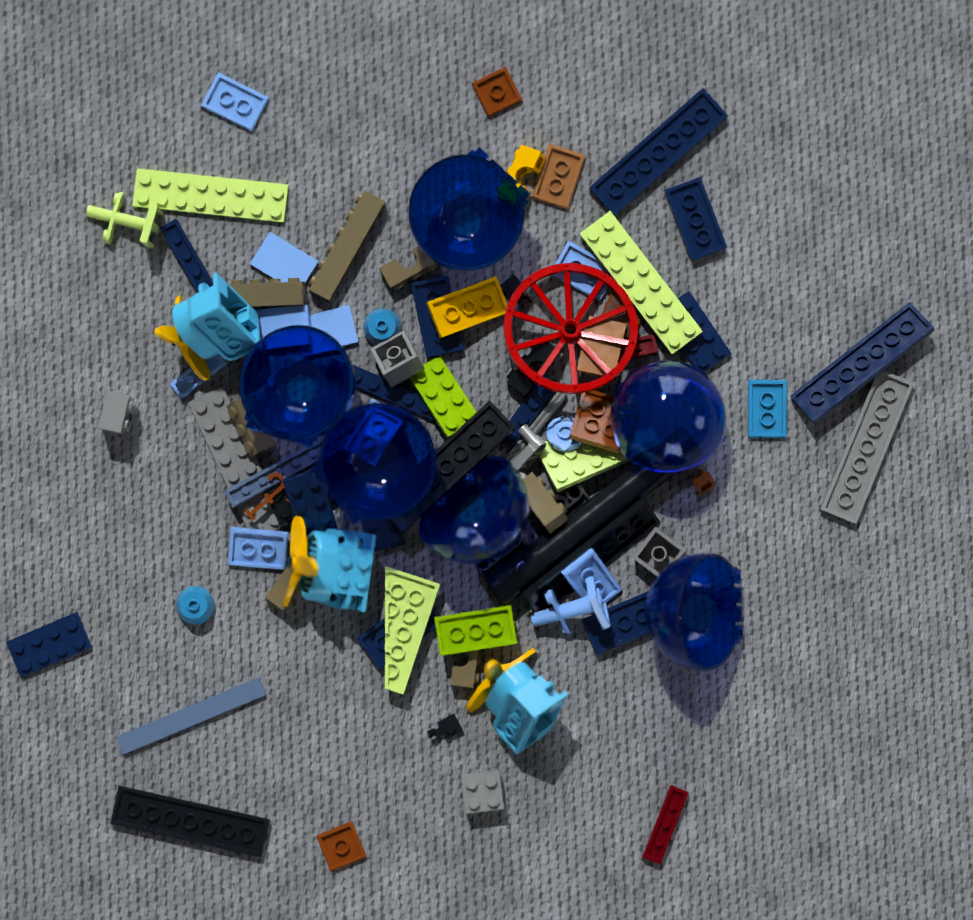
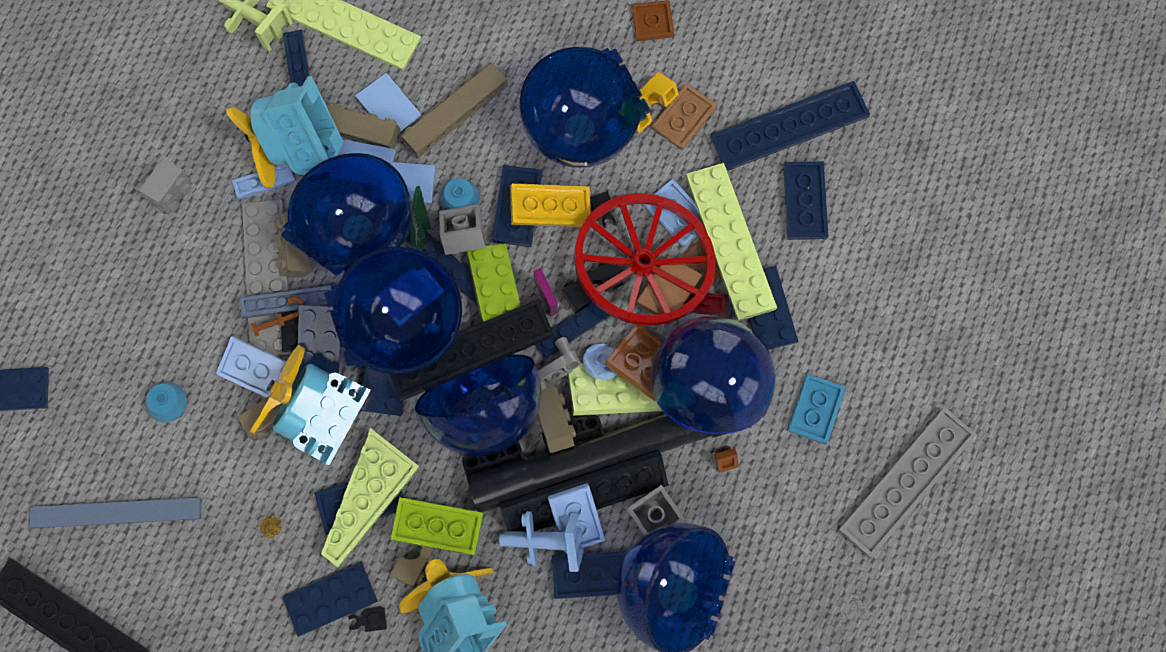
camera: 15 degrees right, 10 degrees down
(330, 685) = (269, 533): none -> clear yellow plate
(360, 365) = (420, 221): none -> clear green slope
(397, 275) = (493, 153): dark tan arch -> none
(405, 723) = (330, 599): none -> dark blue plate
(493, 389) = (545, 292): none -> magenta tile
(538, 424) = (583, 341): light grey axle -> none
(862, 363) = (929, 395): dark blue plate -> none

